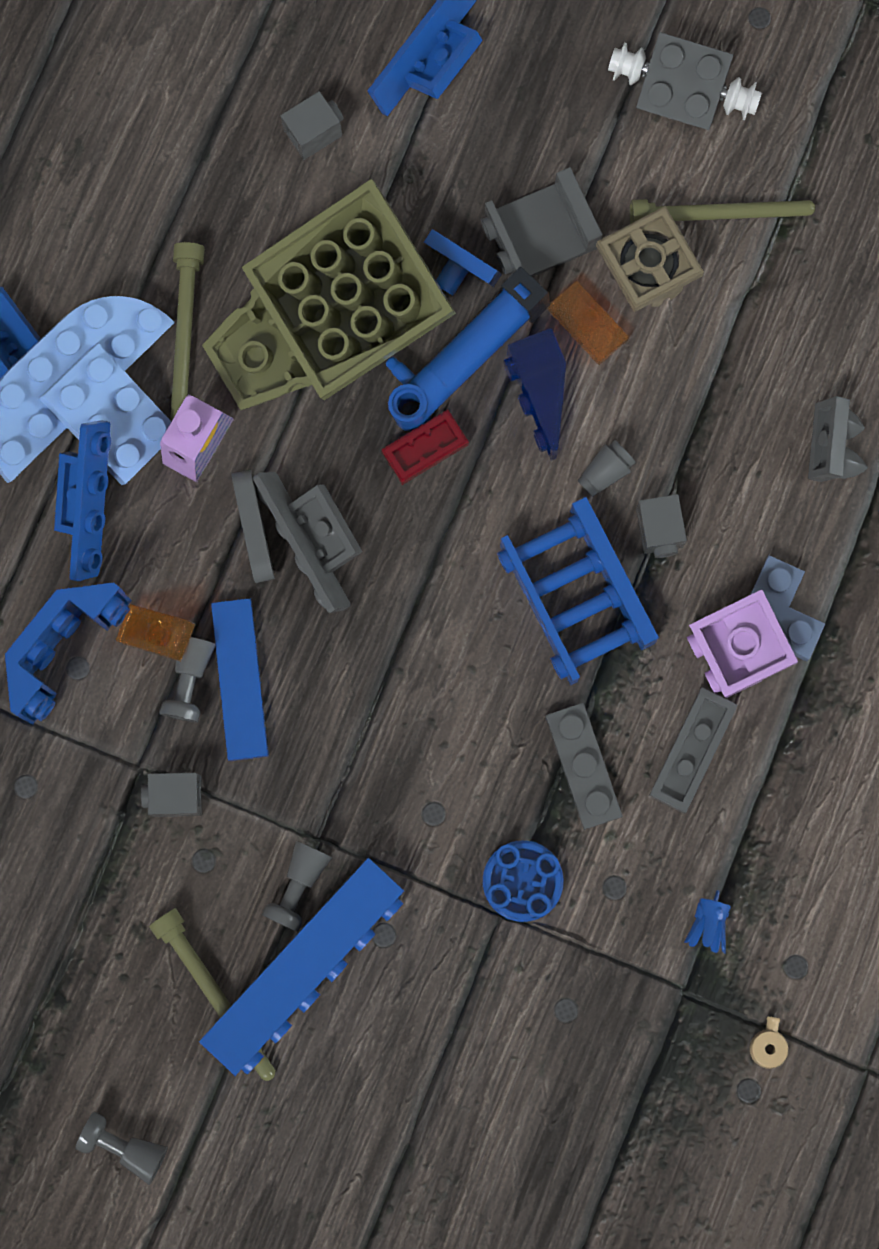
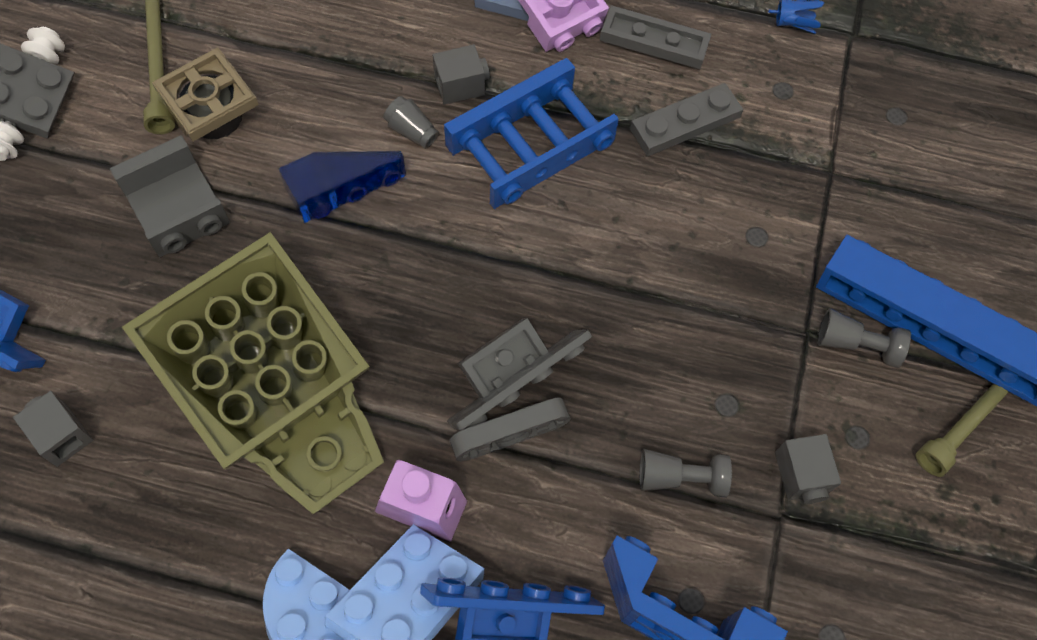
camera: 105 degrees left, 15 degrees down
(155, 632) = (646, 505): clear orange plate -> none
(188, 259) = (214, 543): olive piece -> none
(239, 680) = (670, 424): blue tile -> none
(425, 447) = (406, 277): dark red plate -> none
(459, 264) = (210, 254): blue tile -> none
(519, 302) = (253, 204): blue piece -> none
(522, 881) = (800, 155): blue tile -> none
(588, 323) = (267, 153): clear orange plate -> none

